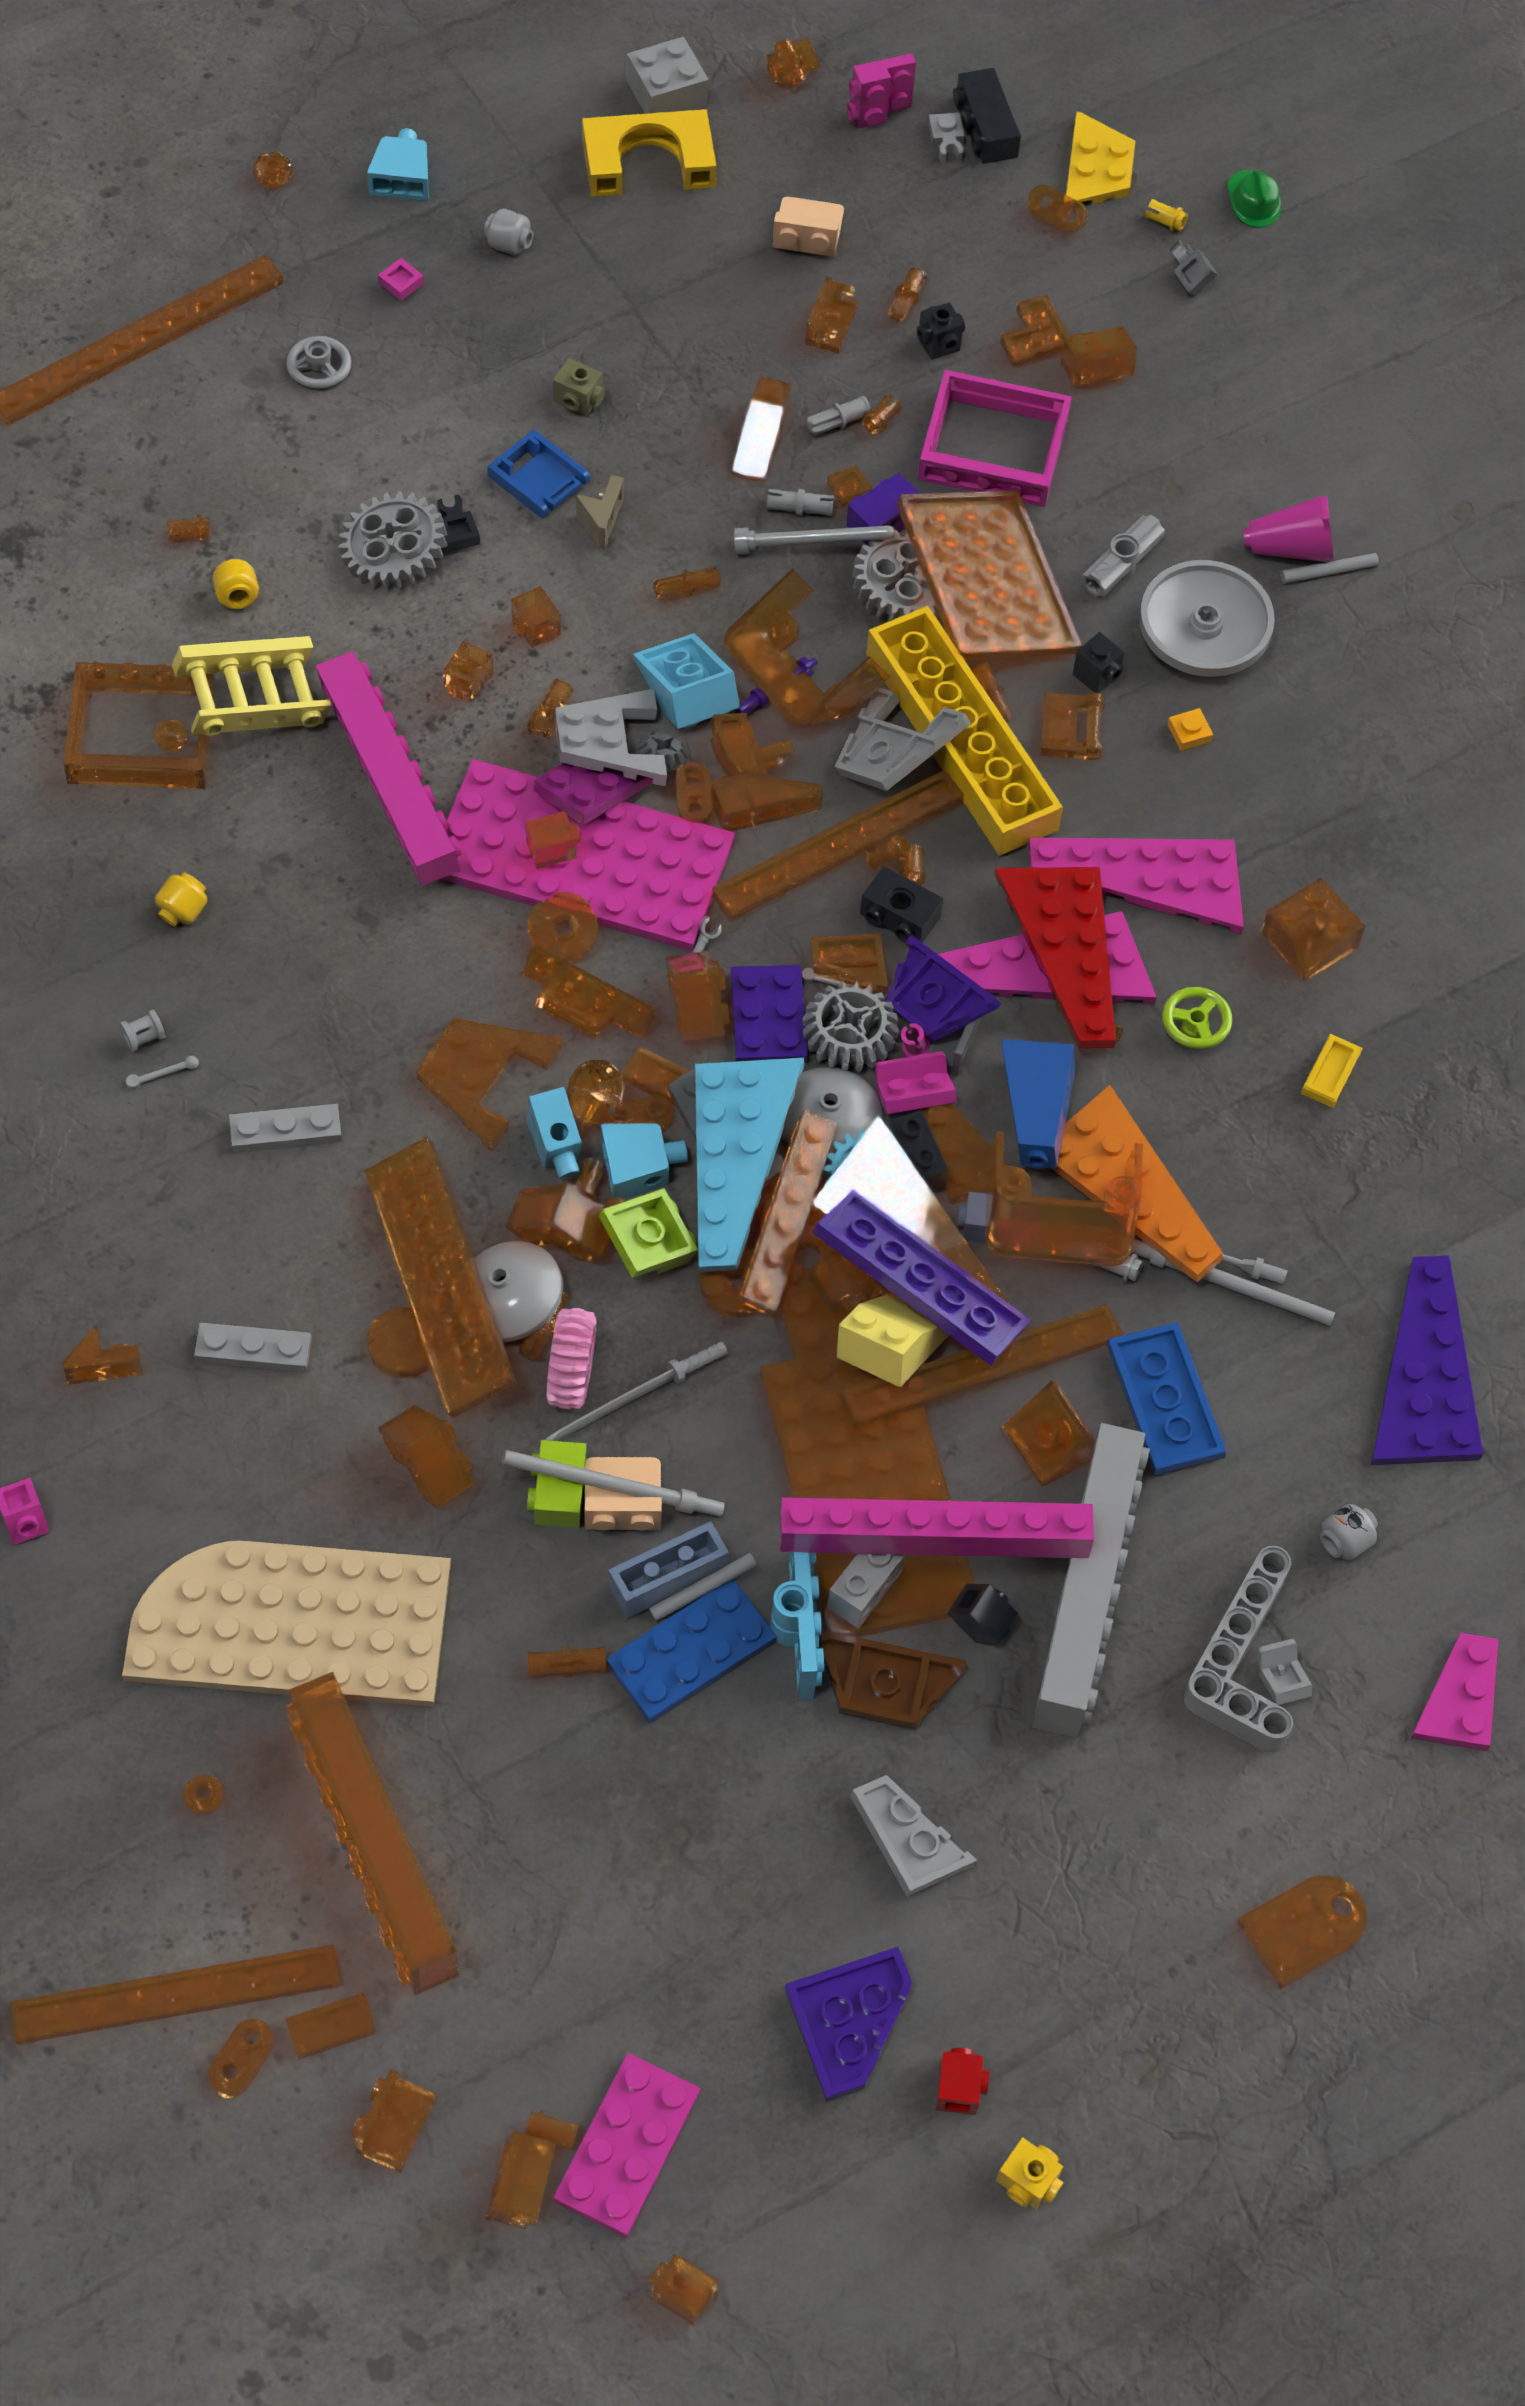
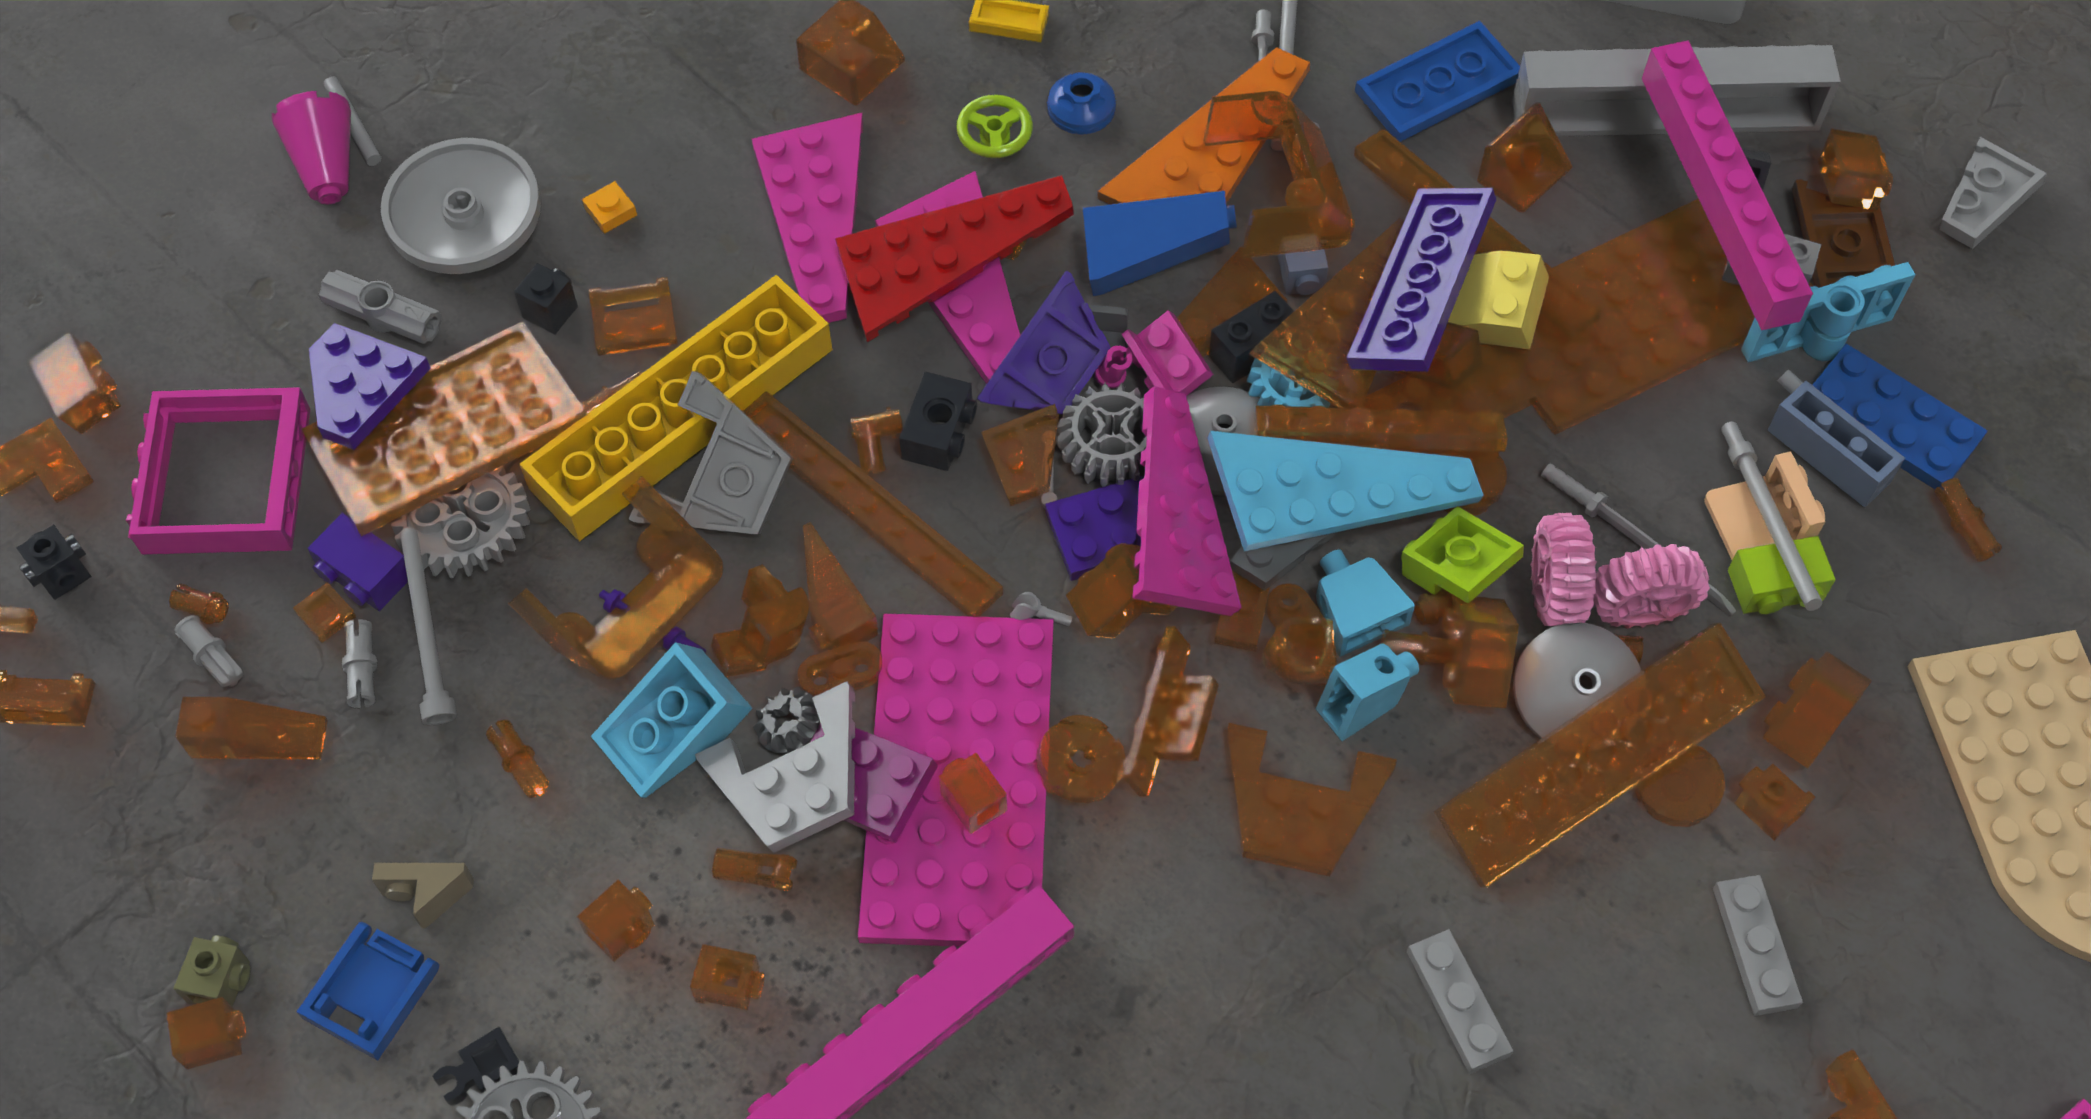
camera: 100 degrees left, 0 degrees up
(363, 1409) = (1772, 800): none -> clear orange brick
(536, 378) = (205, 1032): none -> clear orange brick
(607, 1289) = (1563, 569): none -> bright pink gear
(719, 1022) = (1178, 525): none -> dark pink wing
(957, 1709) = (1855, 169): none -> clear orange brick
(1049, 529) = (359, 382): none -> plate
(1213, 1115) = (1078, 113): none -> blue piece

